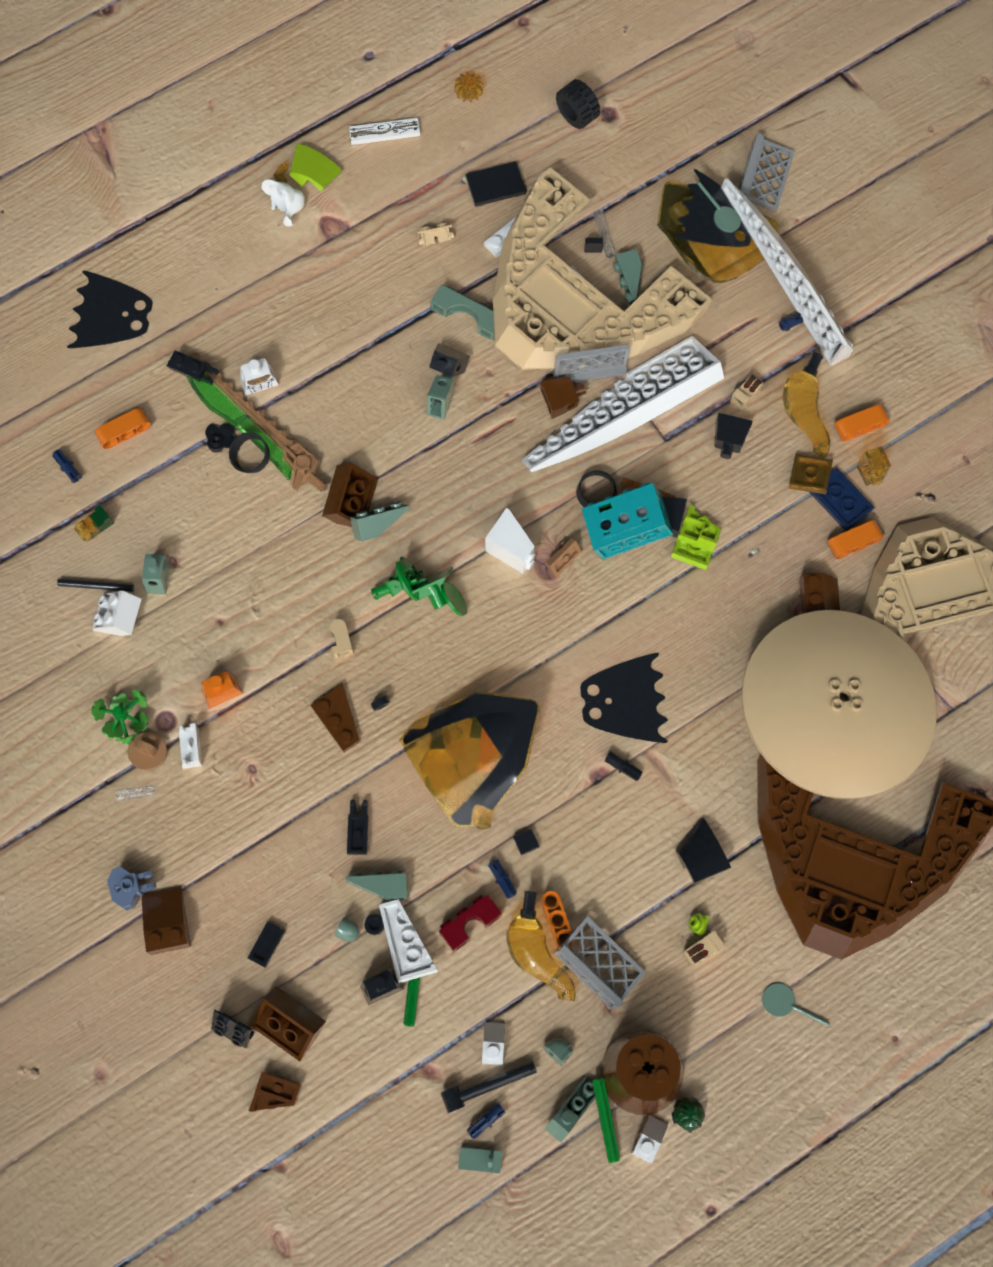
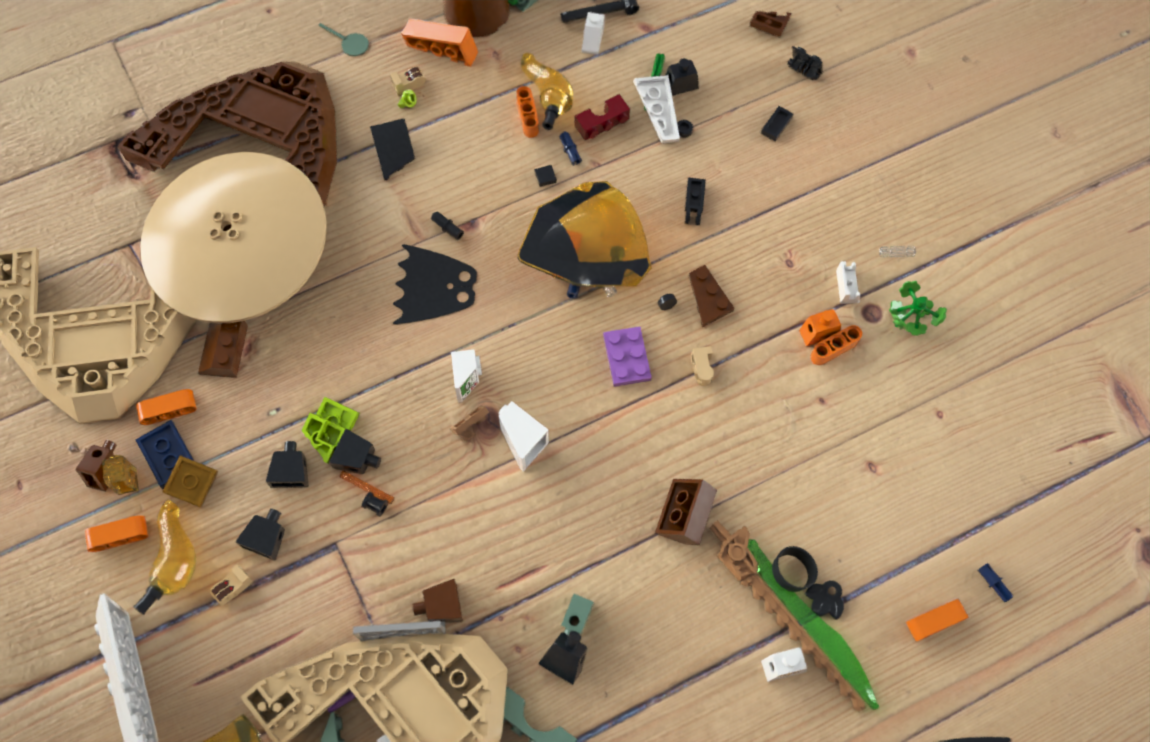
camera: 175 degrees left, 5 degrees down
(93, 524) = (959, 511): leg -> none
(95, 585) = (951, 449): black bar -> none
(116, 613) = (927, 413): white slope -> none
(130, 887) = (898, 171): sand blue hinge -> none
(147, 751) = (886, 285): medium nougat tile -> none
(155, 570) = (890, 445): sand green torso -> none
(165, 921) = (865, 145): reddish brown slope -> none
(191, 367) = (863, 685): black hinge -> none
(208, 666) = (842, 339): none -> orange beam
(287, 1023) = (758, 65): reddish brown slope -> none
(347, 930) = (708, 122): sand green piece -> none
(374, 523) = (659, 477): sand green slope -> none
(385, 886) = (676, 152): sand green slope -> none
(417, 643) = (627, 356): none -> medium lavender plate
(434, 587) = (615, 401): green piece -> none
(558, 1050) = (540, 25): sand green piece -> none
(575, 598) = (465, 371): none -> white slope
(582, 500) = (430, 507): black tyre -> none
(588, 975) = (509, 66): light grey fence -> none
(627, 521) = (396, 436): teal piece -> none
(633, 401) = (357, 591): white wedge -> none
(637, 472) = (375, 504): none -> black bush
(677, 1007) = (441, 40): none -> orange wedge
(723, 495) = (288, 468): none -> black torso
(787, 323) = (156, 669): dark blue pin -> none
(898, 475) = (91, 468): none -> reddish brown torso

